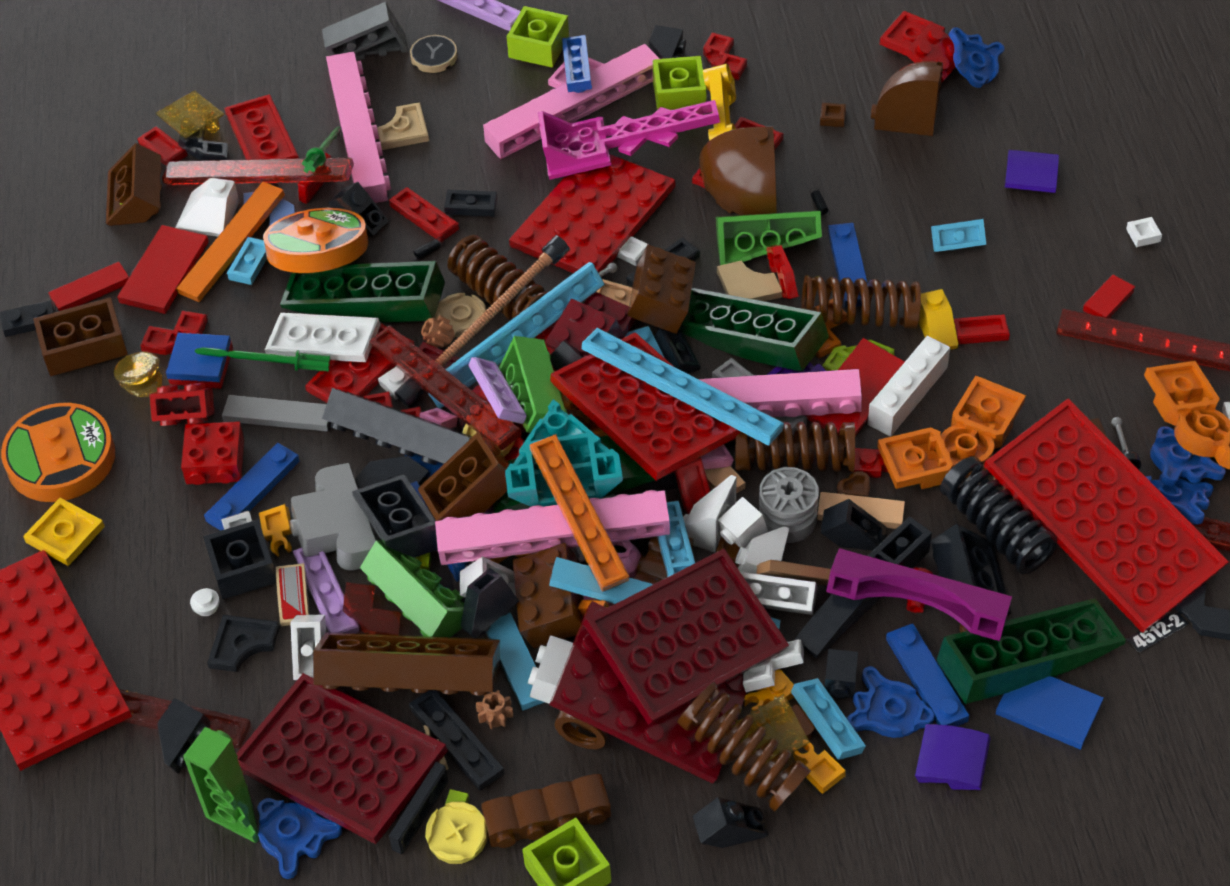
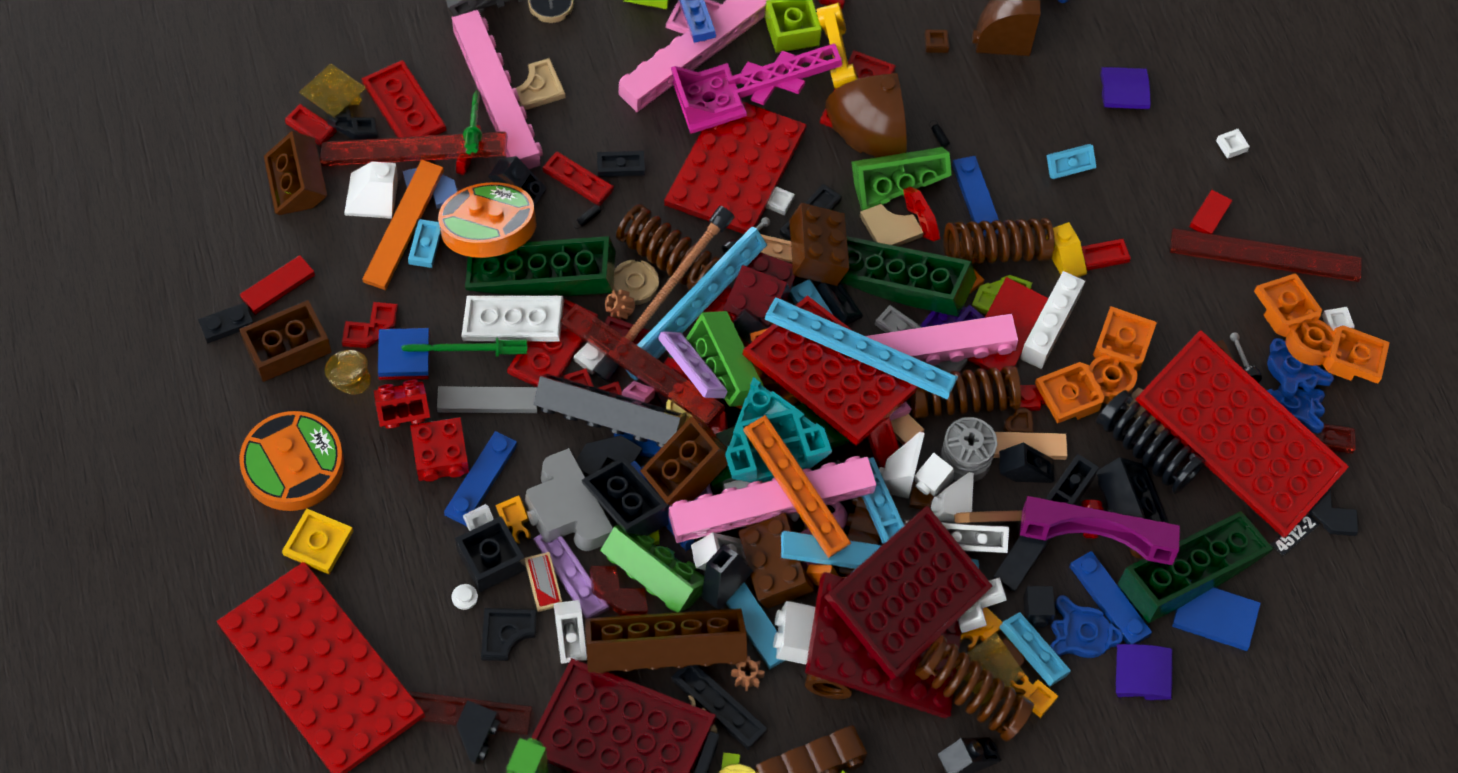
camera: 15 degrees left, 10 degrees up
(162, 269) = (343, 258): red tile -> none

